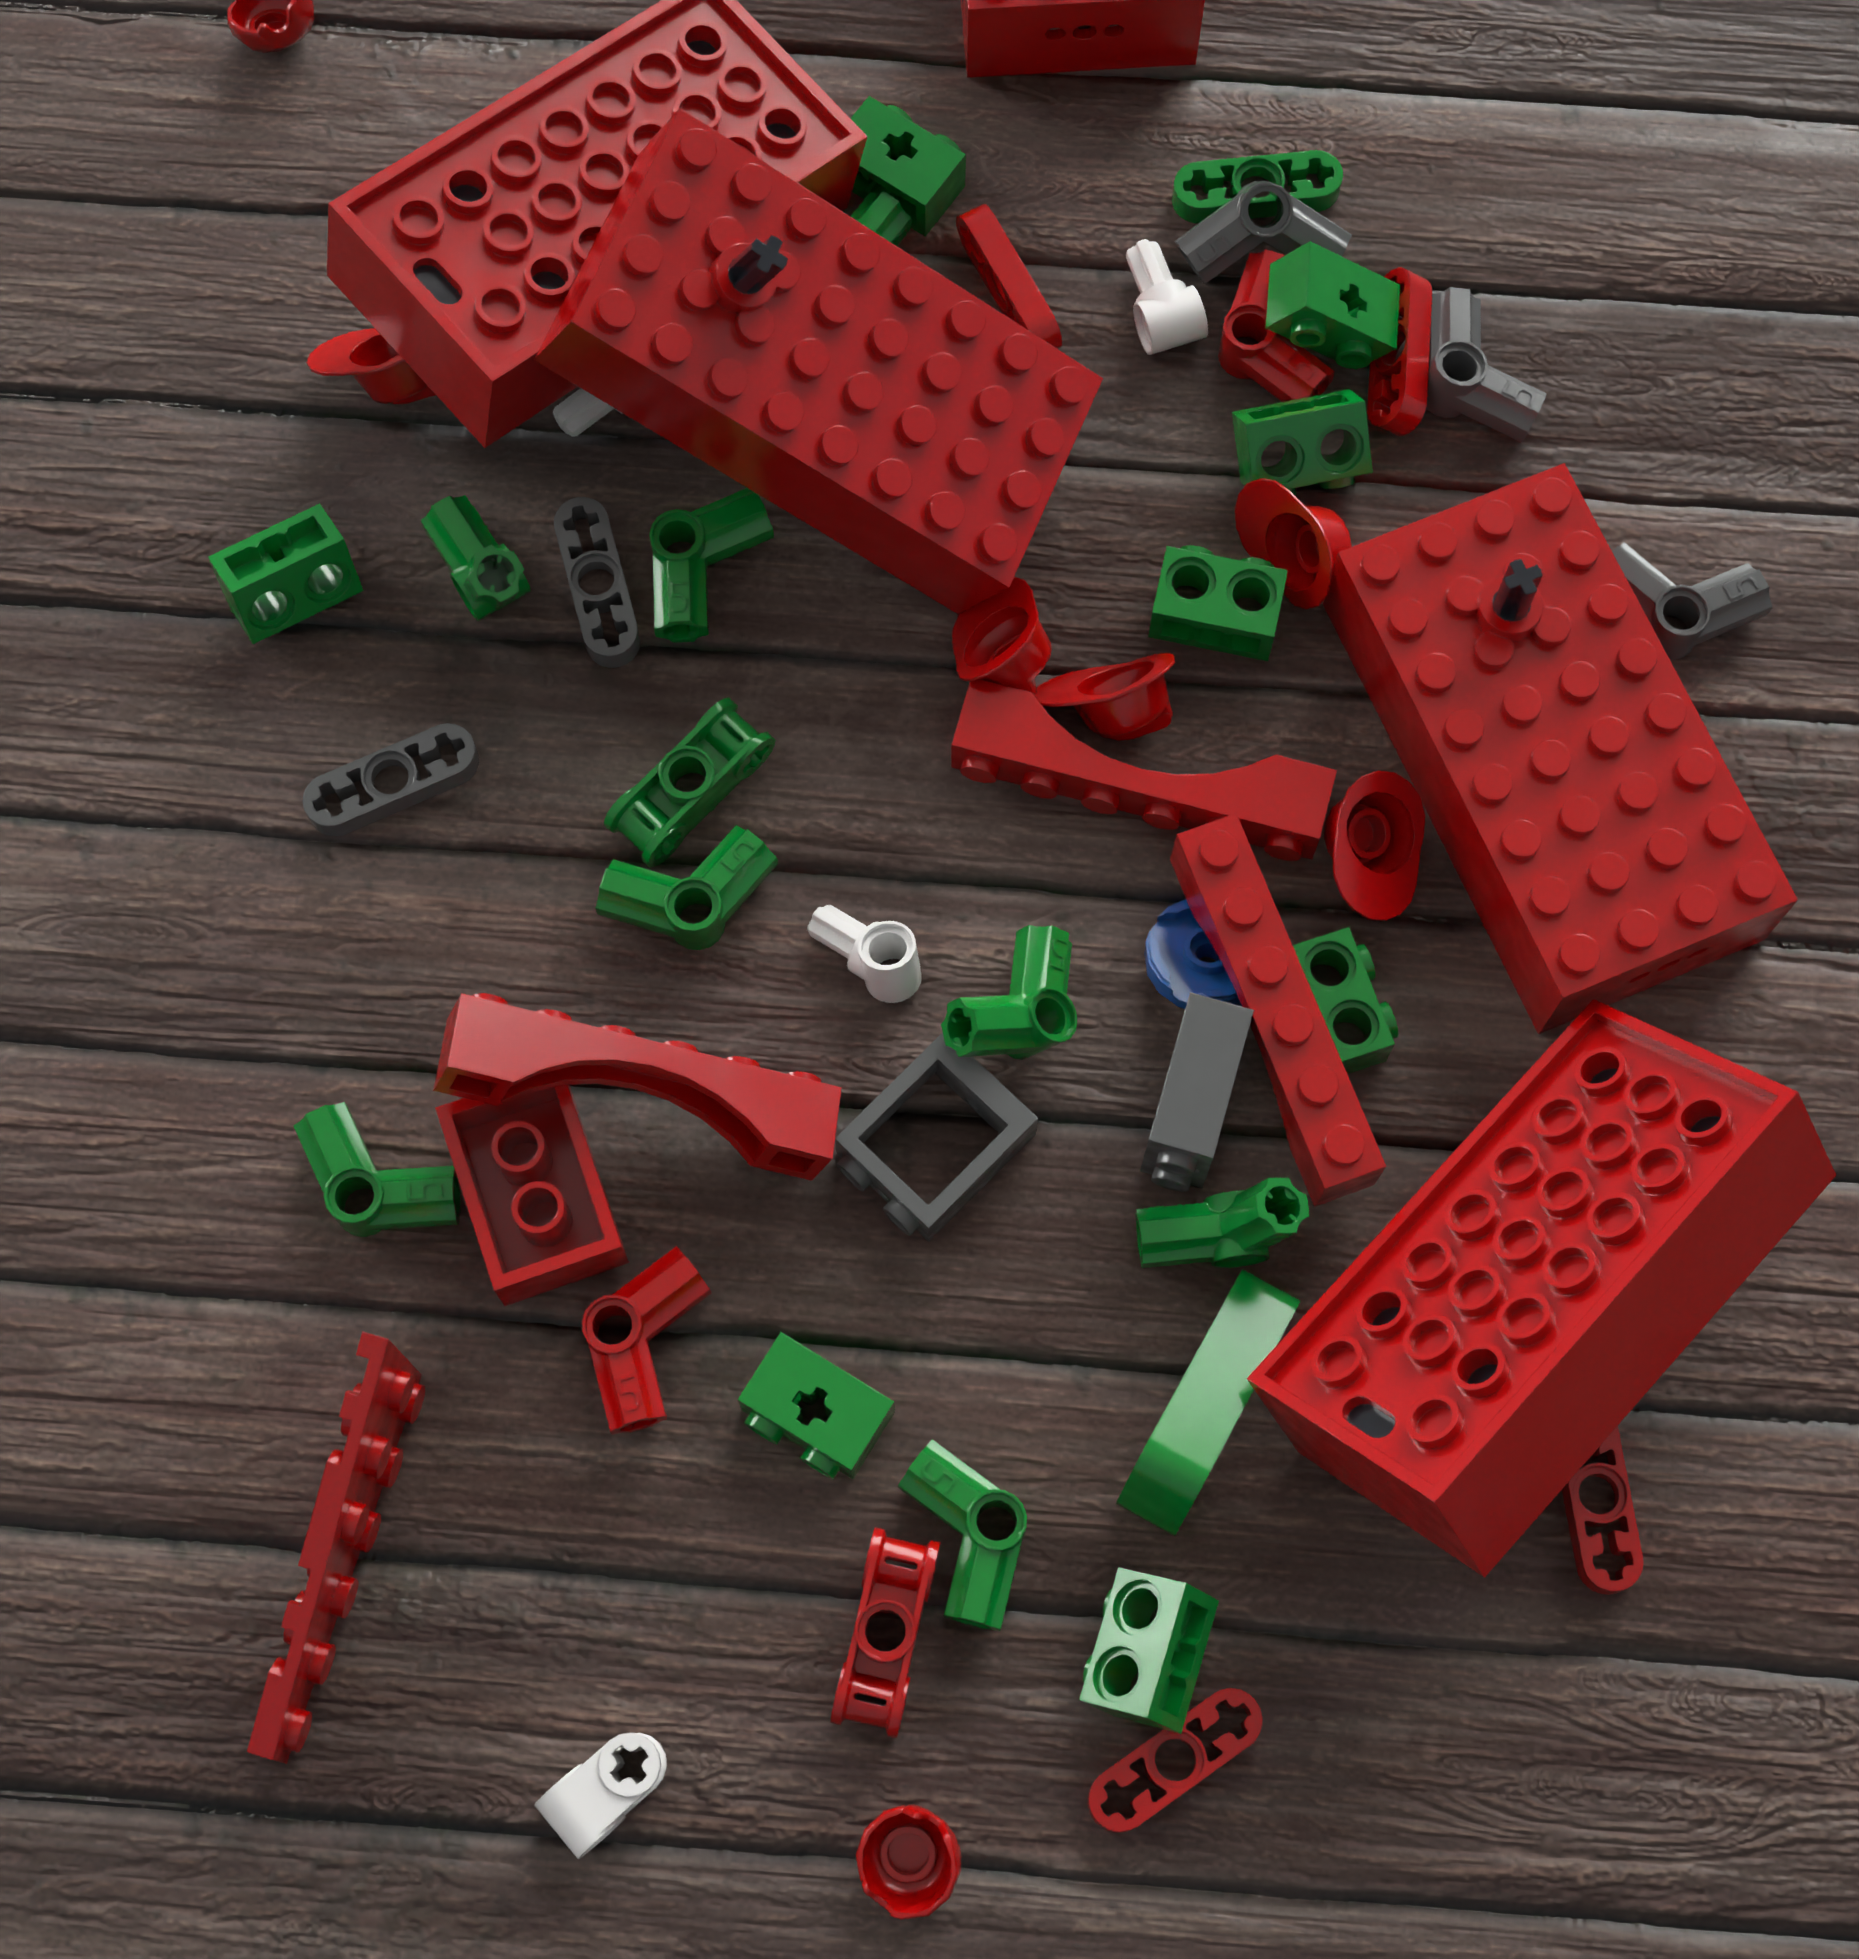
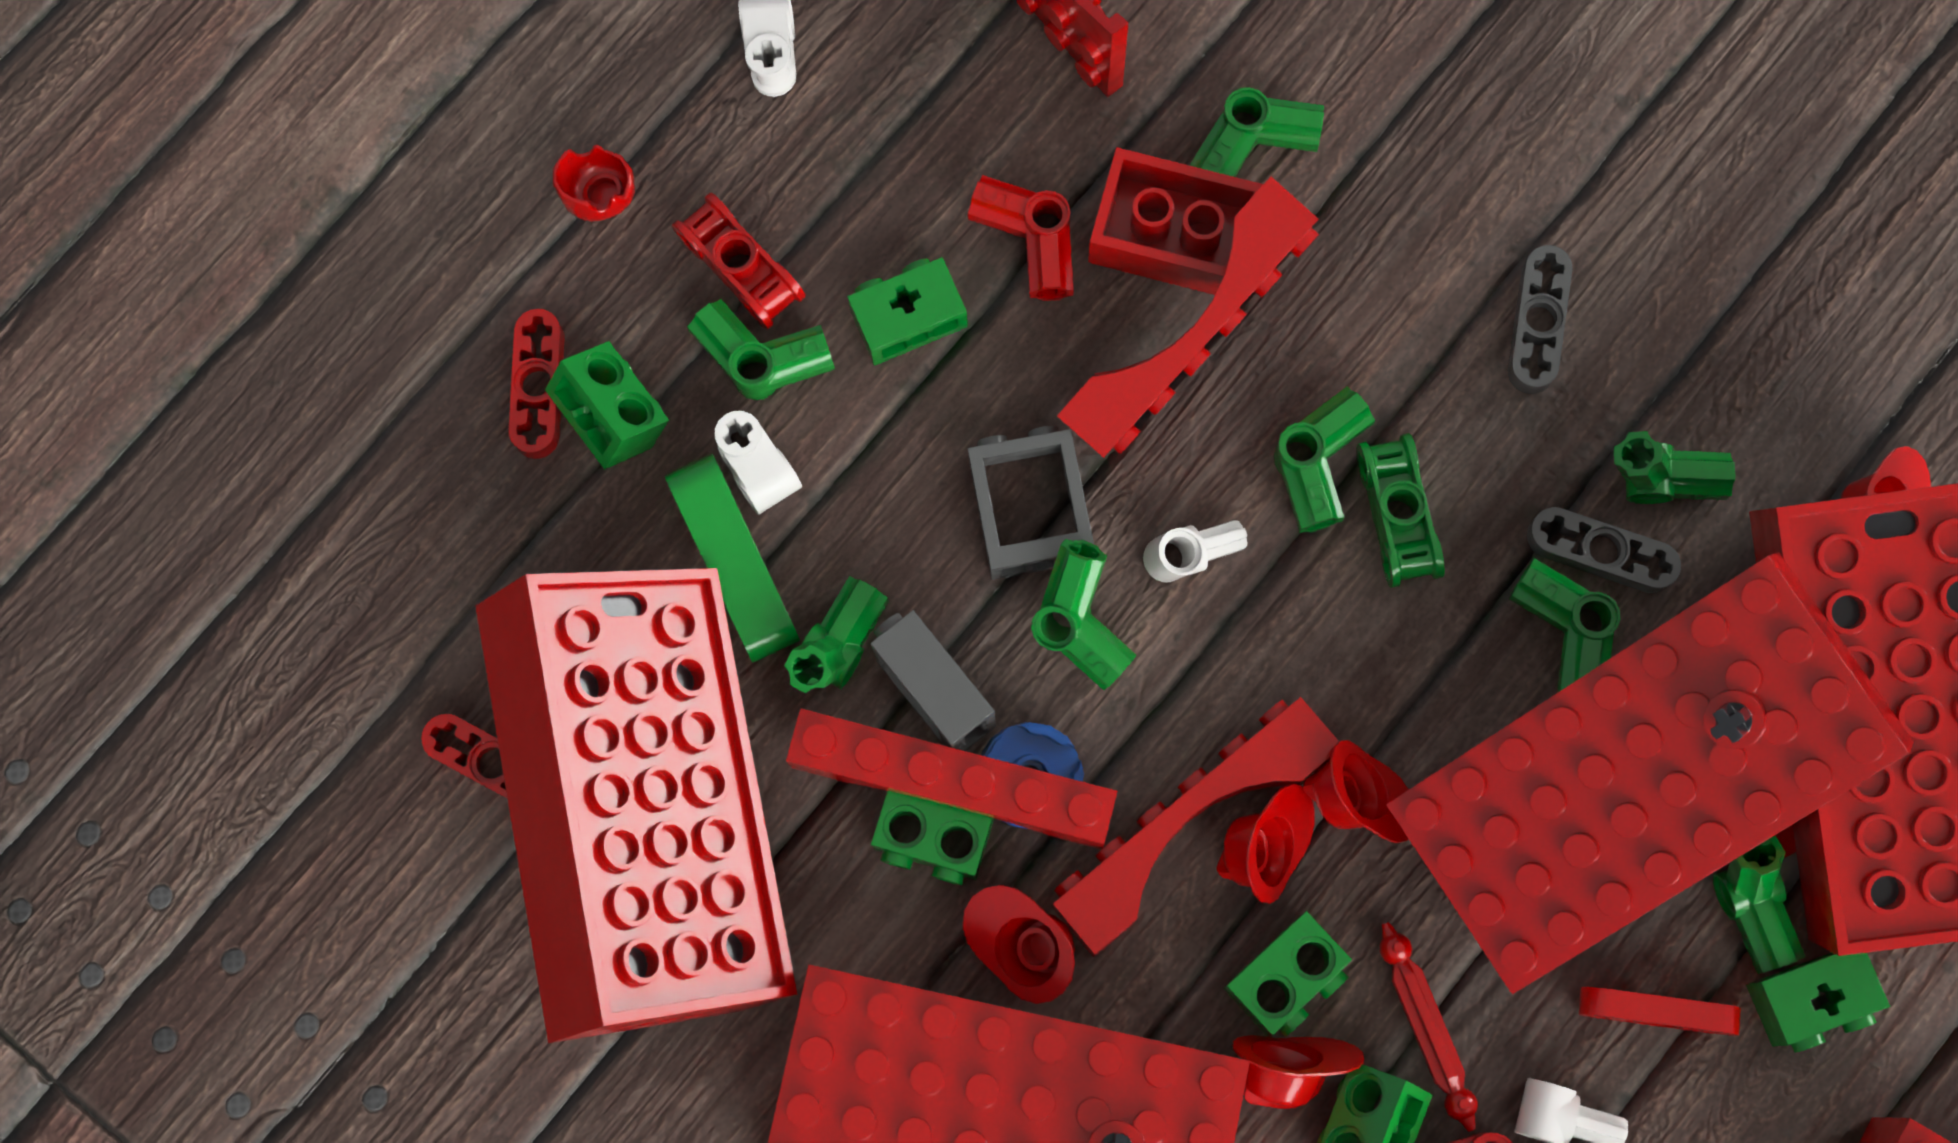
camera: 130 degrees right, 5 degrees up
(286, 573) = (1744, 332): green brick -> none
(1094, 1442) = (757, 468): none -> white piece
(1168, 460) = (1428, 1027): none -> red wheel

